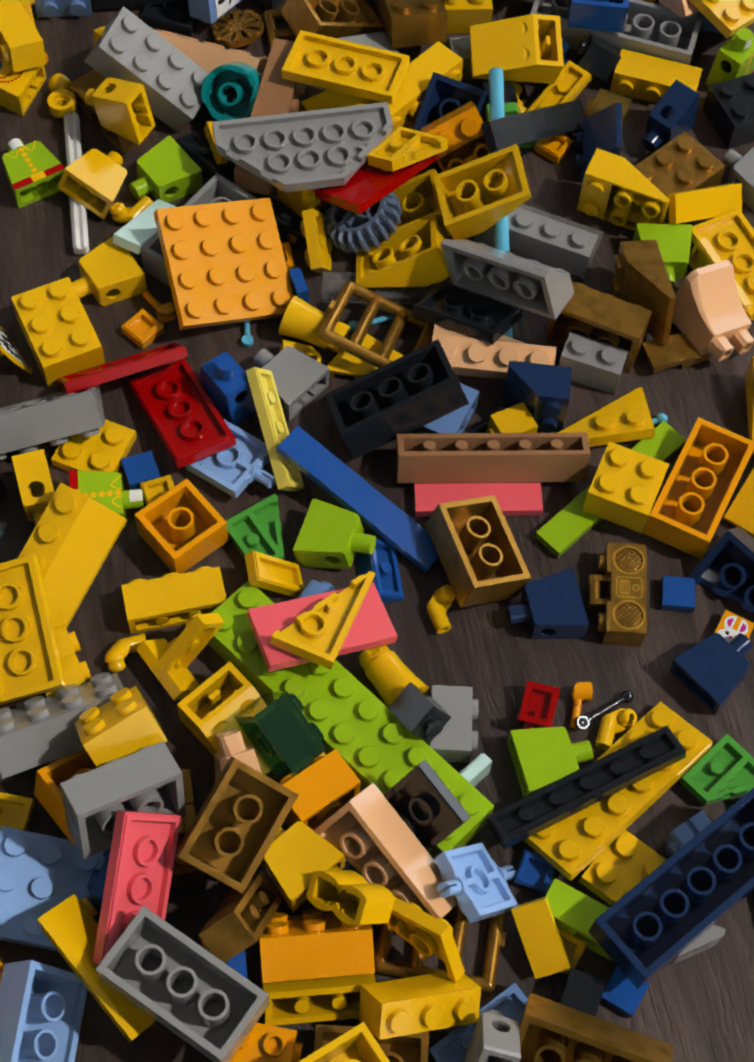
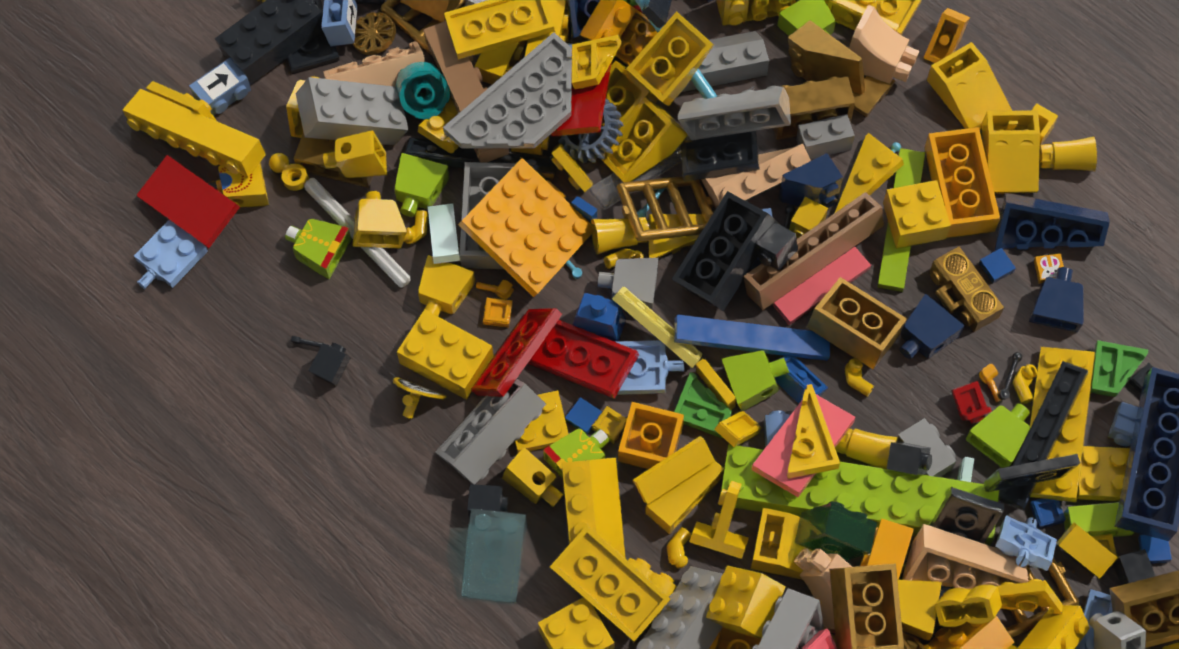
camera: 30 degrees left, 5 degrees up
(171, 566) = (673, 470): none -> yellow tile
(290, 520) = (715, 384): none -> yellow tile
(448, 423) = (776, 246): none -> black brick
(531, 808) = (1031, 473): none -> black tile

